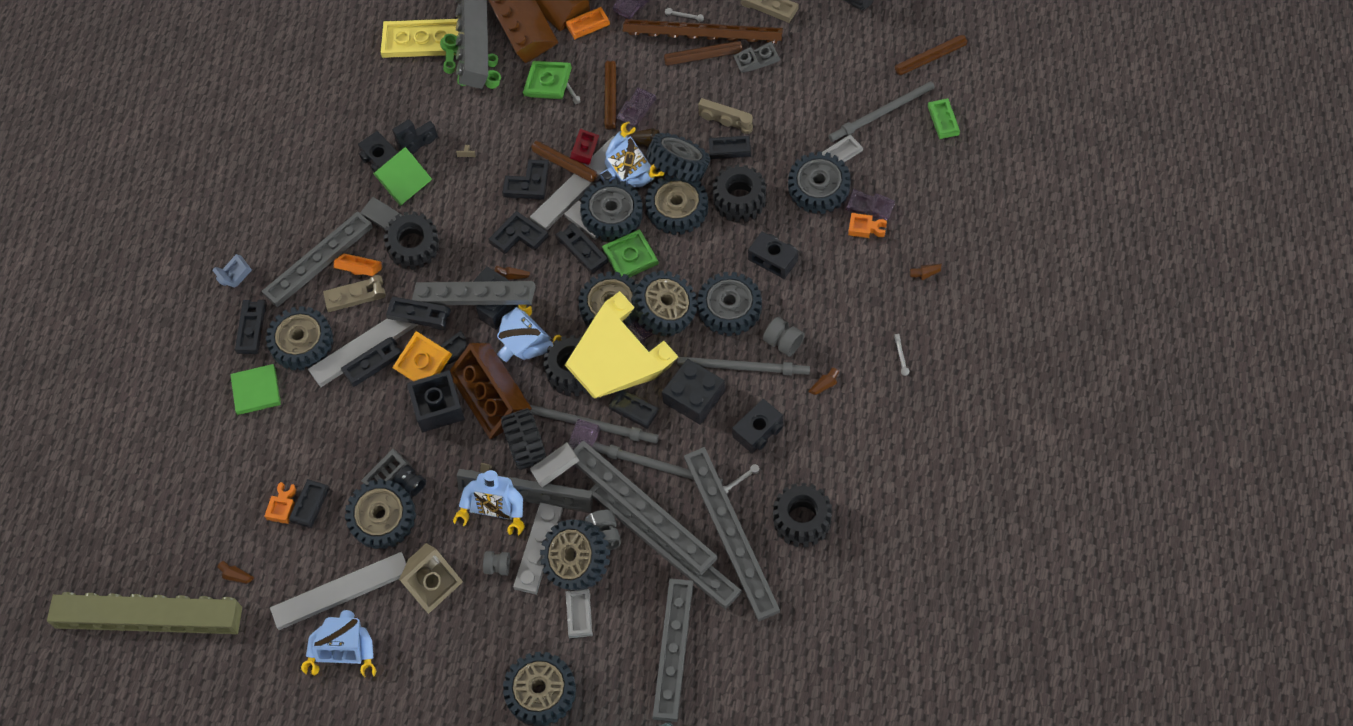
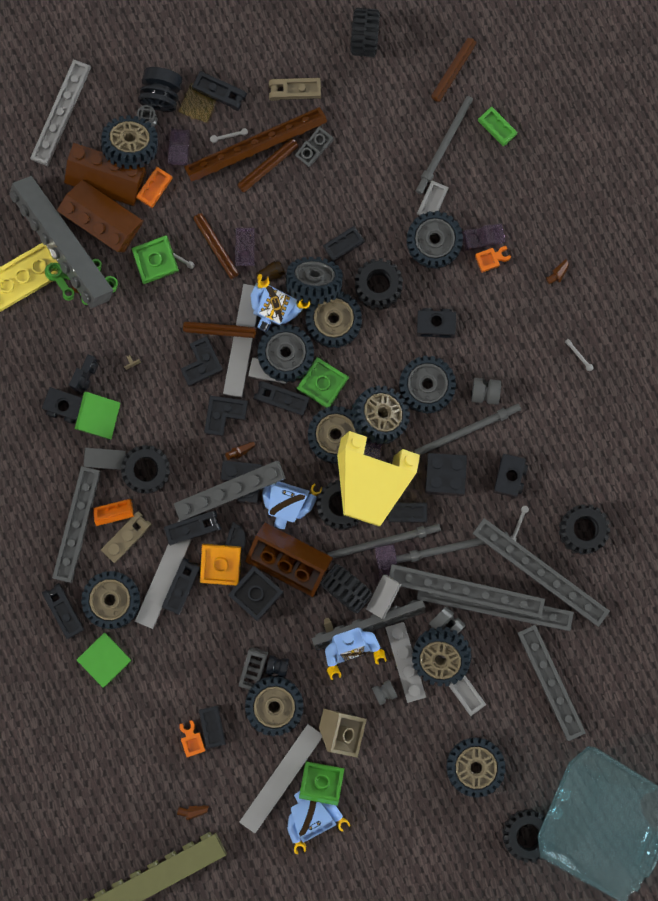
camera: 30 degrees left, 20 degrees up
(233, 272) = (15, 574): sand blue bracket -> none
(374, 613) = (321, 783): none -> bright green tile
(584, 146) = (228, 308): dark red plate -> none
(726, 115) = (325, 217): dark tan plate -> none
(825, 382) = (536, 410): reddish brown bar -> none

